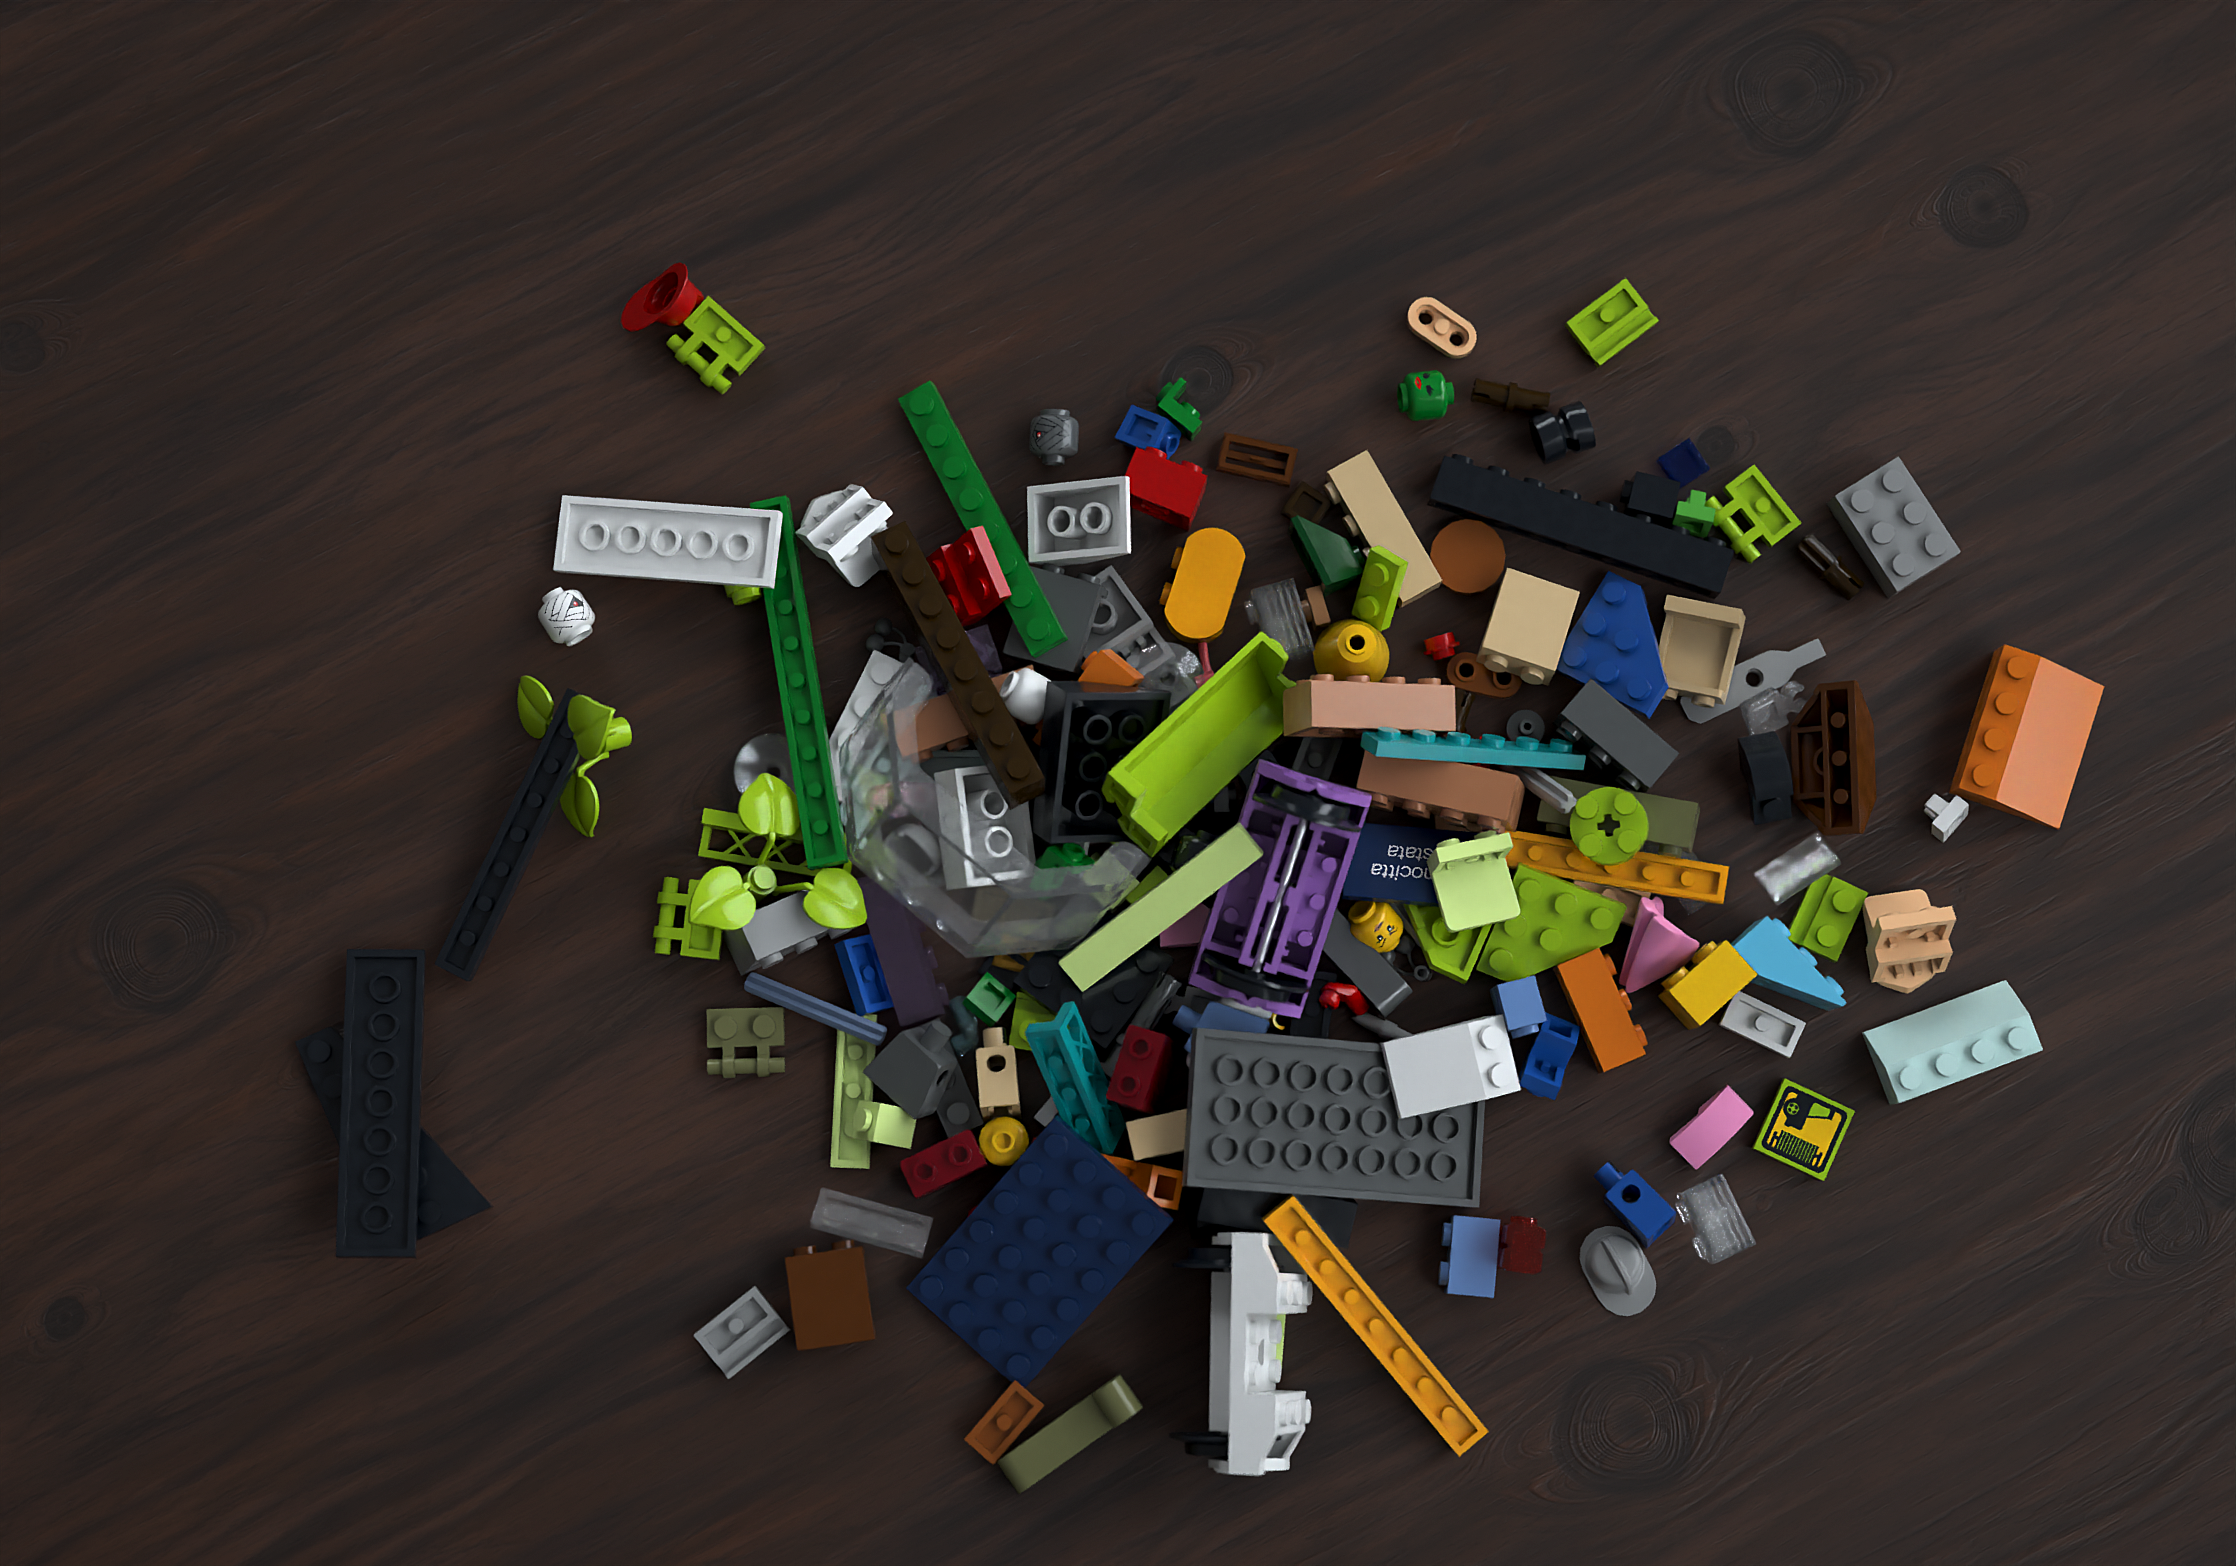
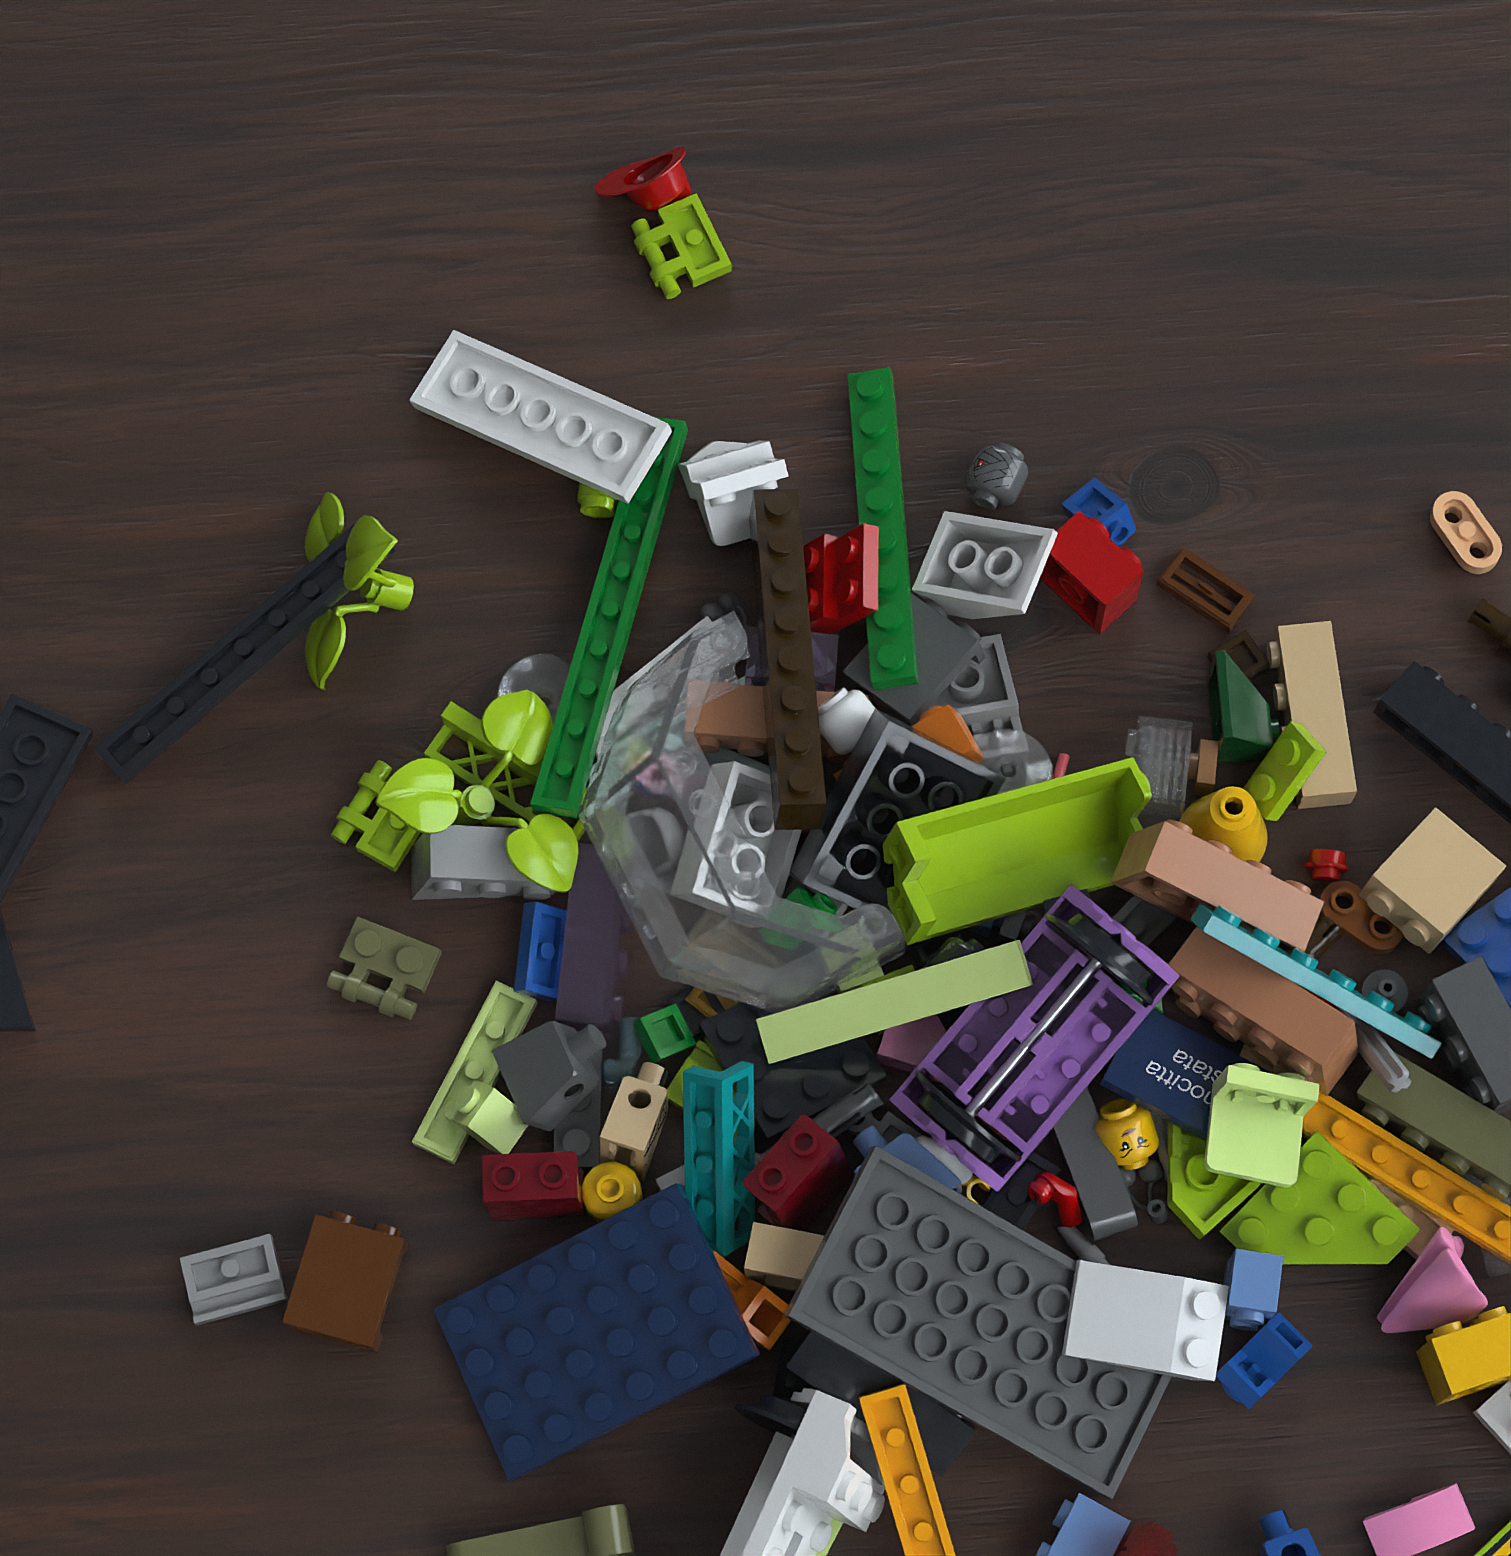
camera: 30 degrees right, 10 degrees down
(566, 616) = (400, 451): white head -> none
(815, 1008) = (473, 964): sand blue axle -> none
(871, 1222) = (428, 1220): clear plate -> none
(1004, 1422) = (473, 1506): dark orange plate -> none
(1181, 415) = (1143, 508): green bracket -> none
(1202, 585) = (1090, 693): light orange brick -> none
(1424, 395) = (1418, 593): green head -> none
(1468, 556) = (1396, 783): dark orange tile -> none
(1601, 1010) = (1344, 1337): orange brick -> none
(1625, 840) = (1450, 1151): lime plate -> none

